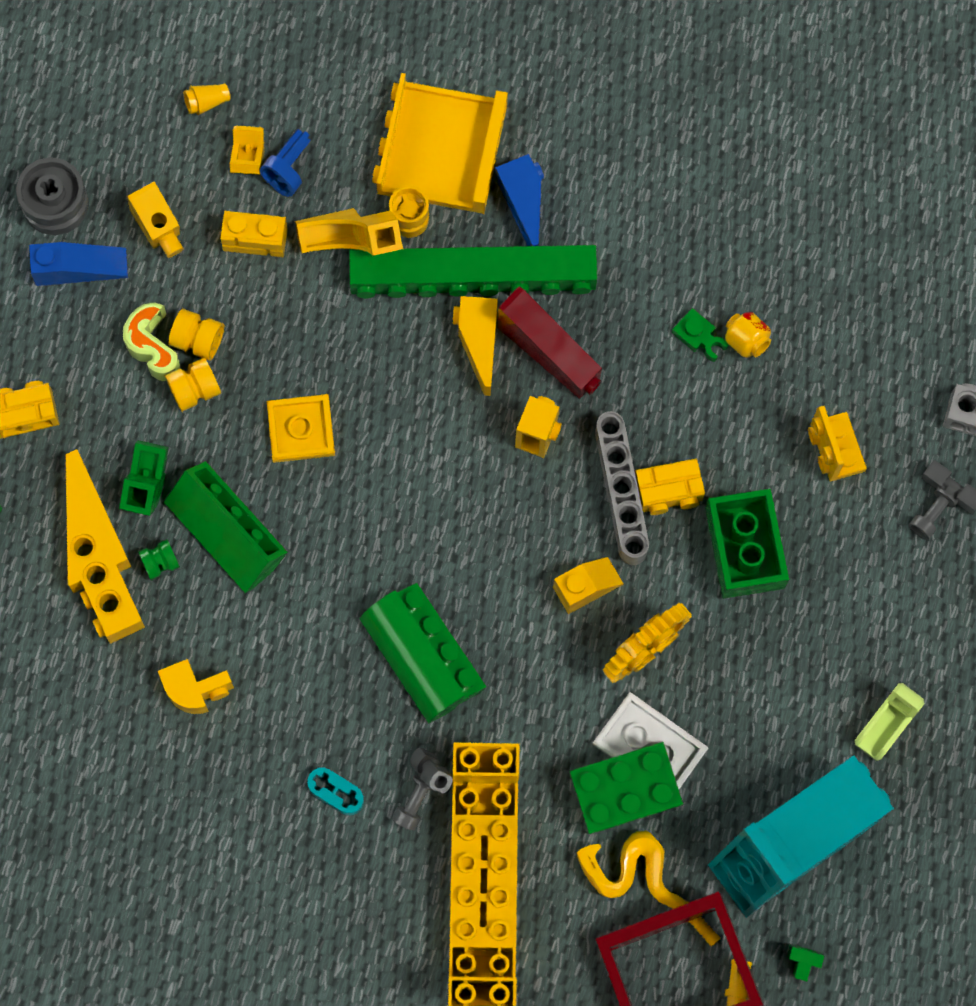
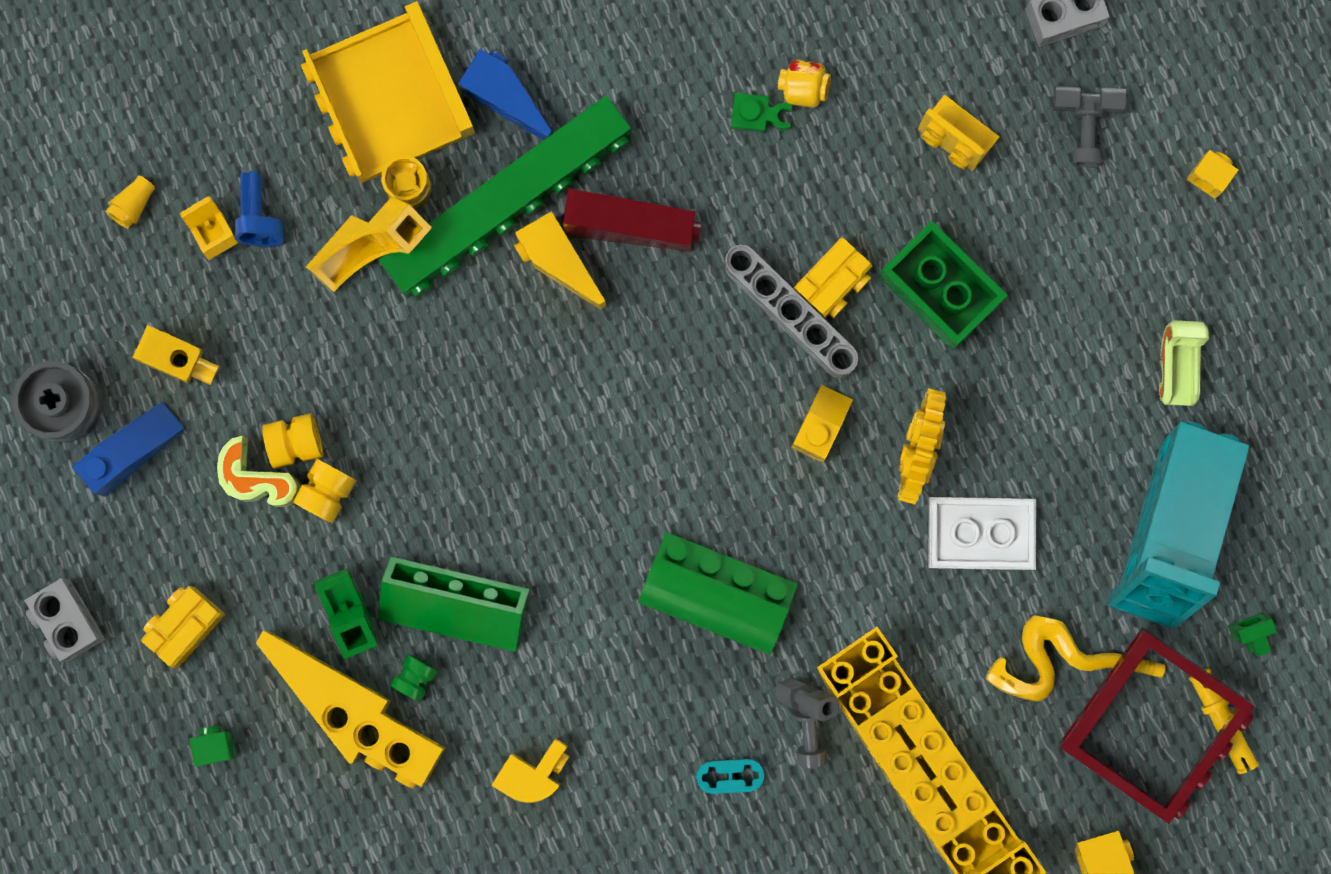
camera: 30 degrees left, 10 degrees up
(254, 233) = (275, 305): yellow brick -> none
(300, 428) = (453, 460): yellow tile -> none
(538, 426) = (676, 307): yellow brick -> none
(626, 788) = (992, 591): green brick -> none

